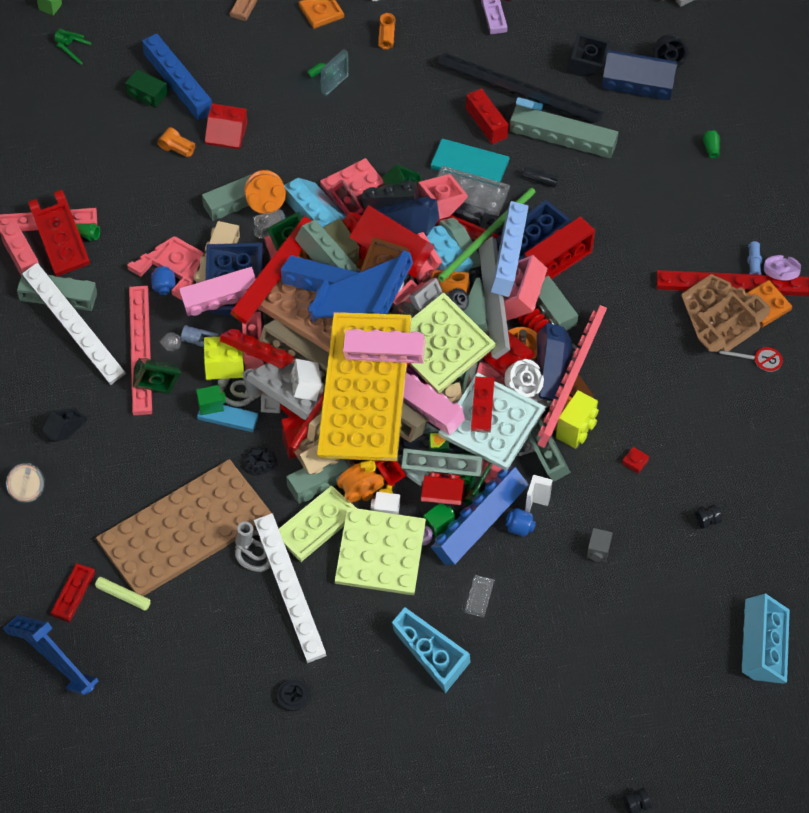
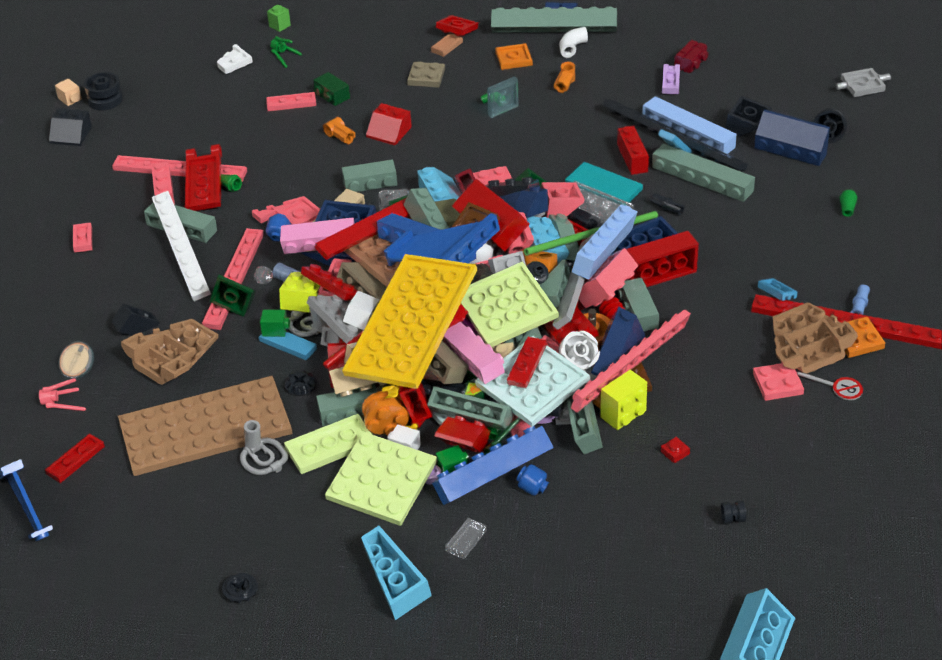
camera: 20 degrees right, 15 degrees down
(16, 529) = (49, 396): none -> coral plant
(22, 65) = (233, 60): none -> white wing
(107, 111) = (291, 101): none -> coral tile
(119, 453) = (170, 351): none -> medium nougat wedge
(122, 593) = (120, 467): yellowish green axle -> none
(177, 76) = (361, 81): blue brick -> none
(238, 50) = (426, 74): none -> dark tan plate
(264, 191) = (397, 170): orange wheel -> none
(290, 588) = (278, 494): white plate -> none
(384, 346) = (439, 284): bright pink brick -> none
(532, 73) = (690, 124): none -> light blue brick
(538, 492) = (558, 454): white panel -> none
(599, 545) = (607, 515): dark grey brick -> none
(676, 261) = (777, 289): none -> dark azure tile
(704, 365) = (777, 381): none -> coral plate
(782, 268) = (886, 312): lavender tile -> none

